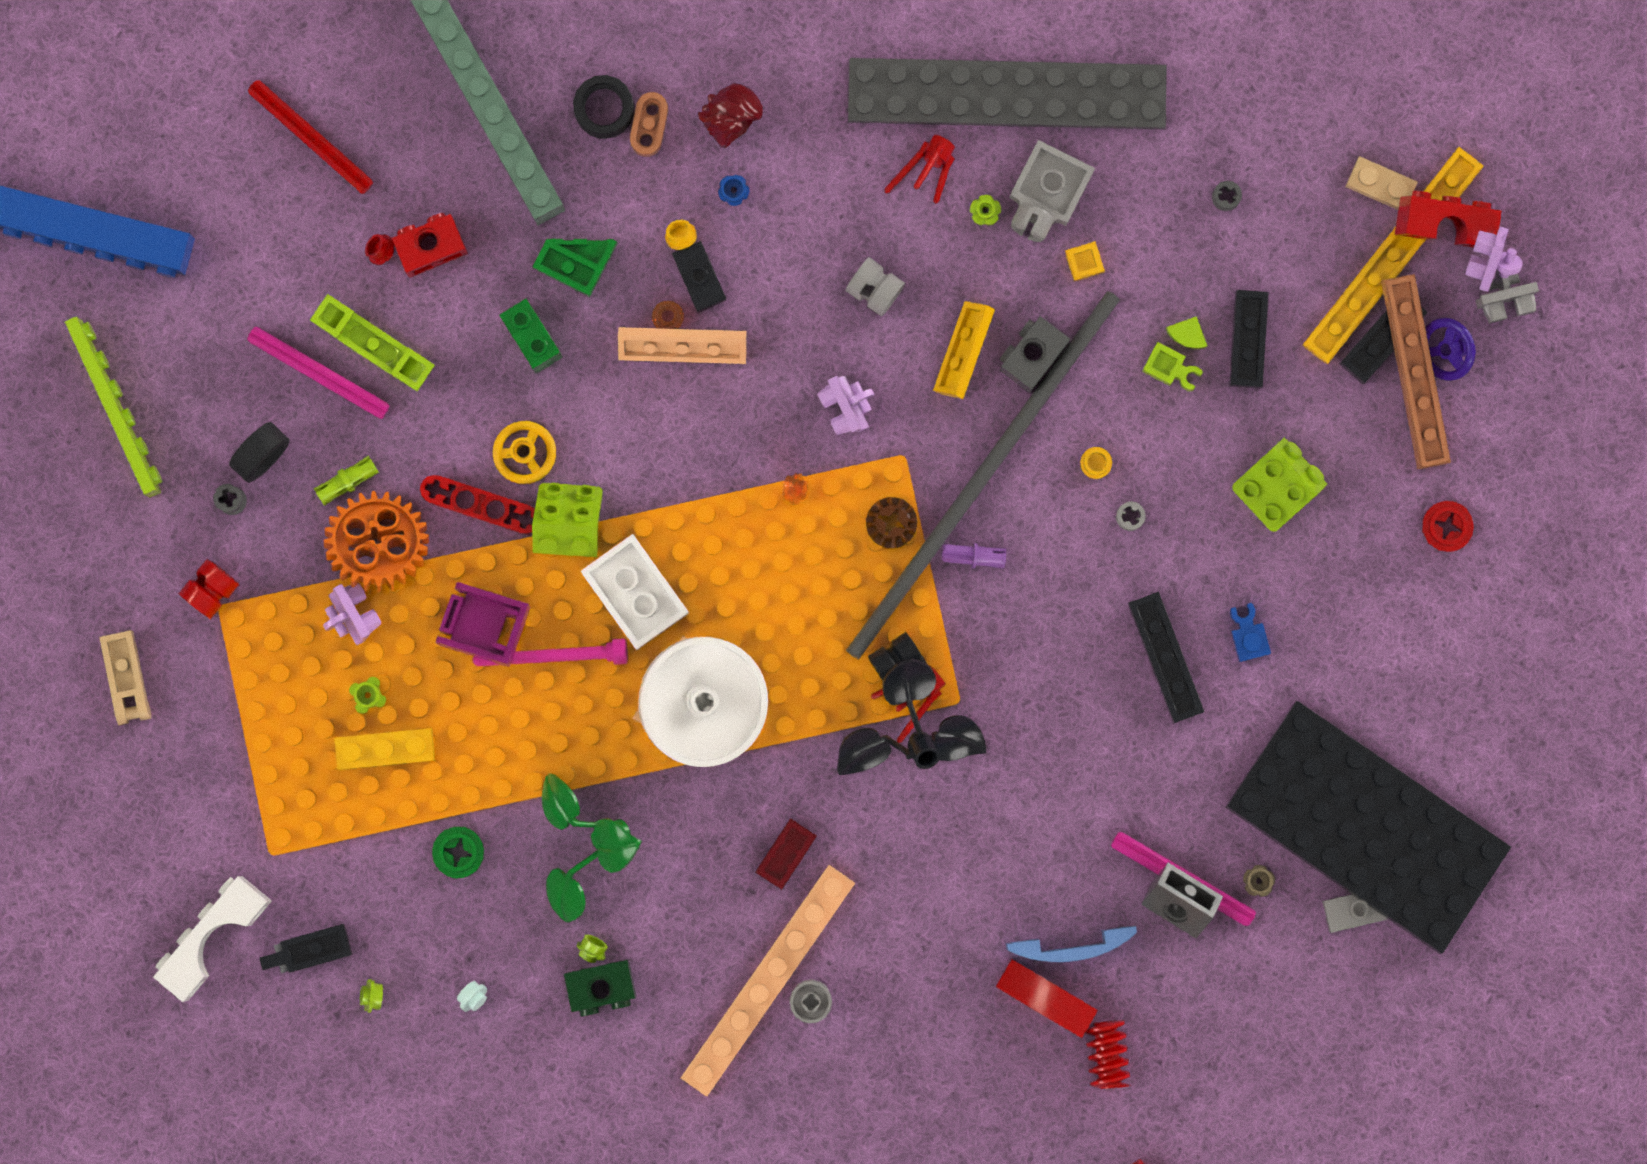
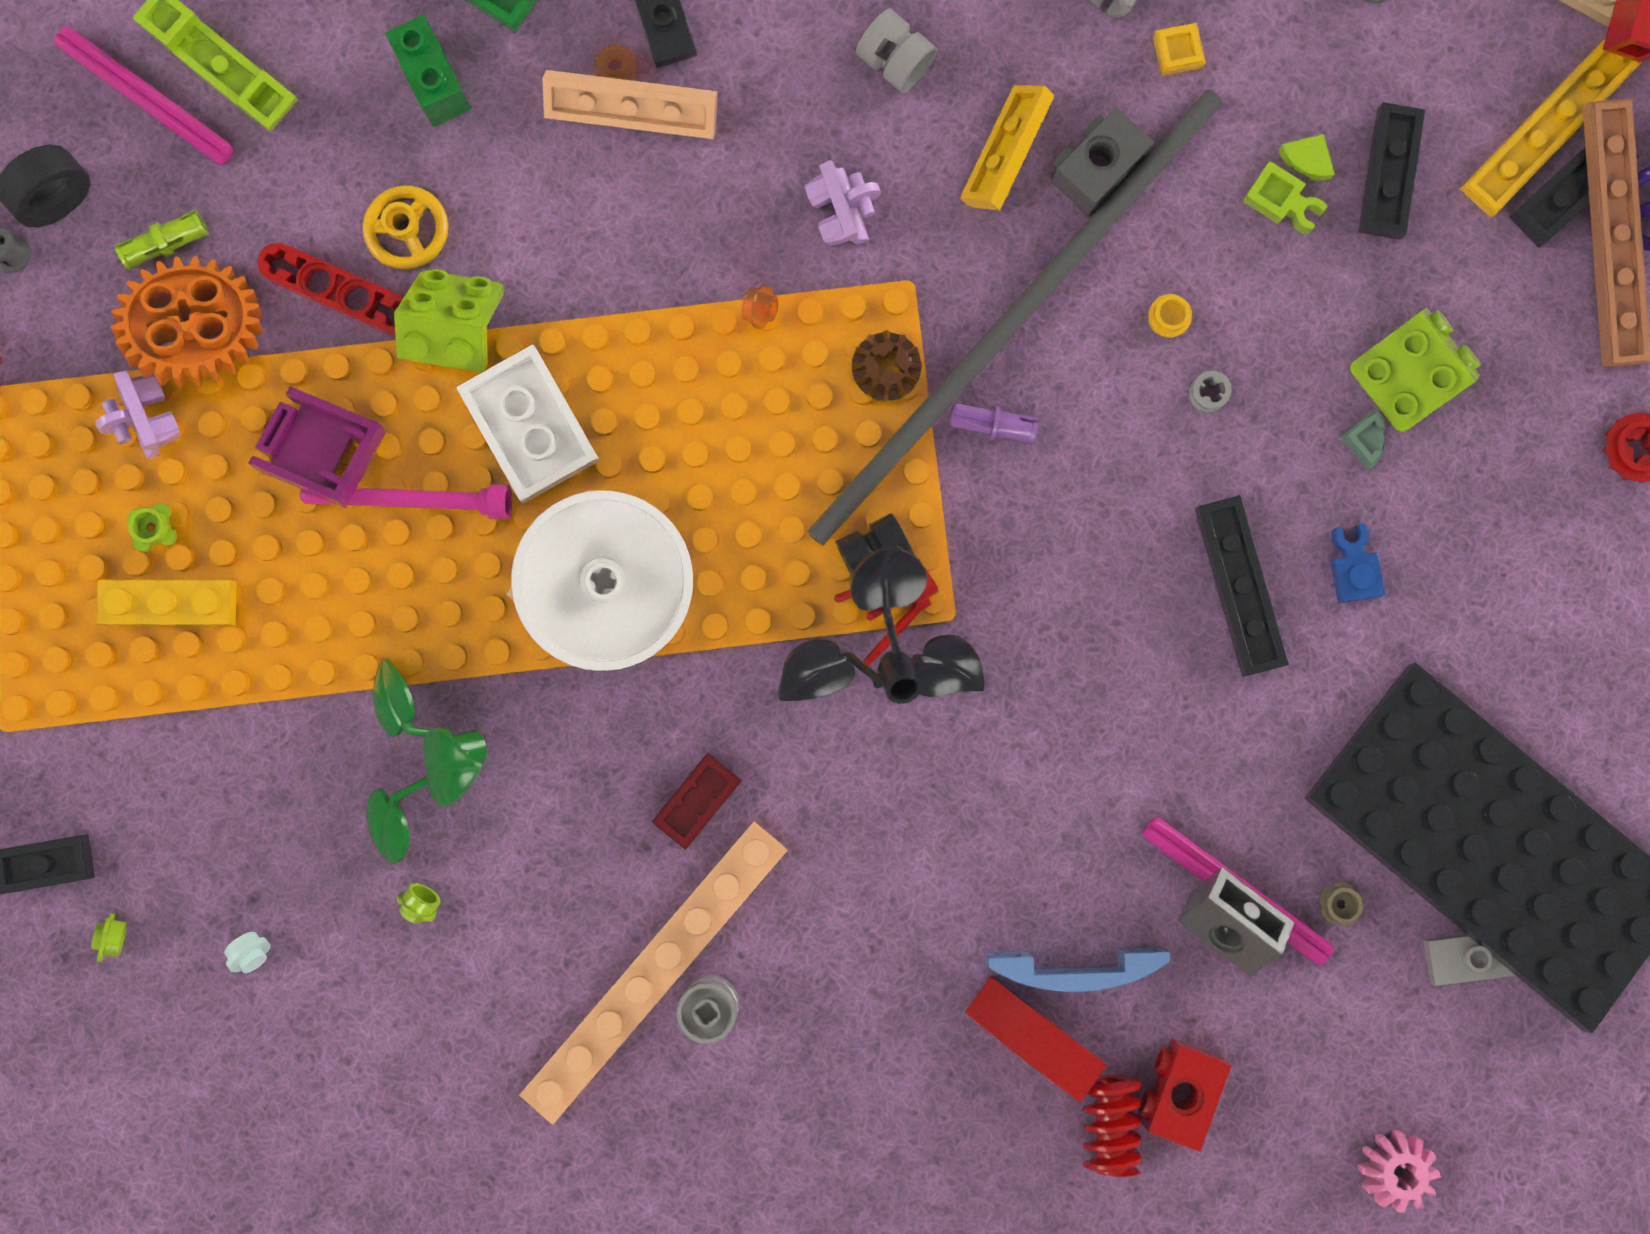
camera: 10 degrees right, 0 degrees up
(449, 839) = (235, 763): green gear -> none
(580, 984) = (395, 958): dark green brick -> none
(1162, 1046) = (1186, 1120): none -> red brick
(1249, 539) = (1367, 439): none -> sand green tile
(1304, 1070) = (1383, 1161): none -> bright pink gear

